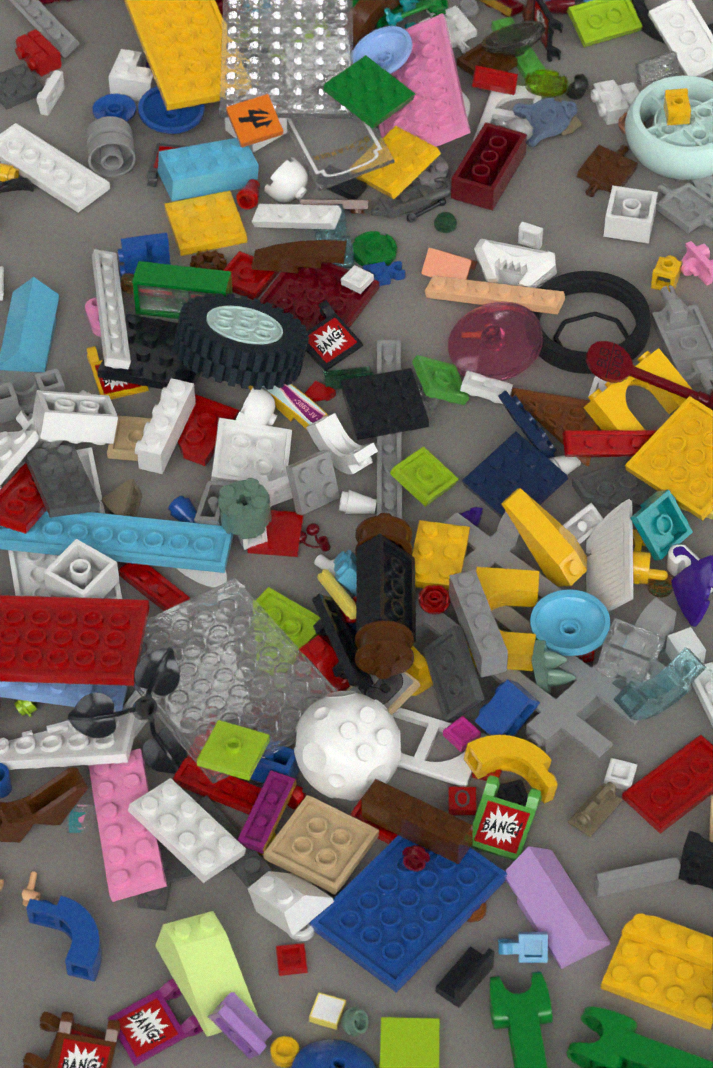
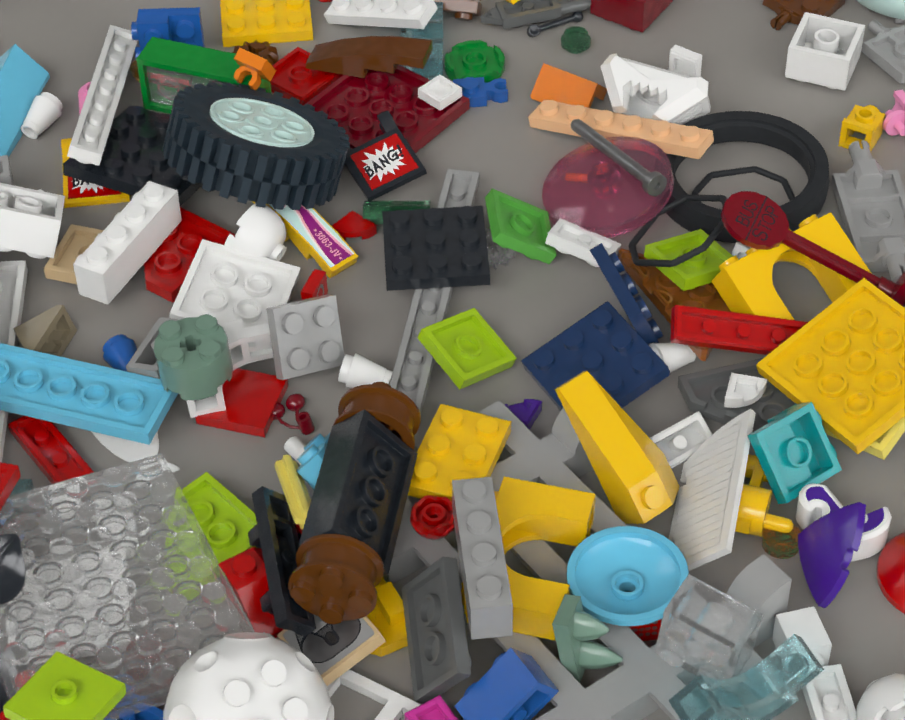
camera: 10 degrees right, 5 degrees down
(64, 327) = (42, 113): none -> white cone
(225, 279) = (252, 65): none -> orange tile
(306, 445) = (315, 285): none -> red tile
(344, 452) = (359, 296): white arch -> none
(531, 338) = (653, 182): none -> flat silver bar
(564, 391) = (695, 271): none -> lime plate
(565, 391) = (671, 263): none -> black piece
(619, 484) = (744, 390): none -> white tile

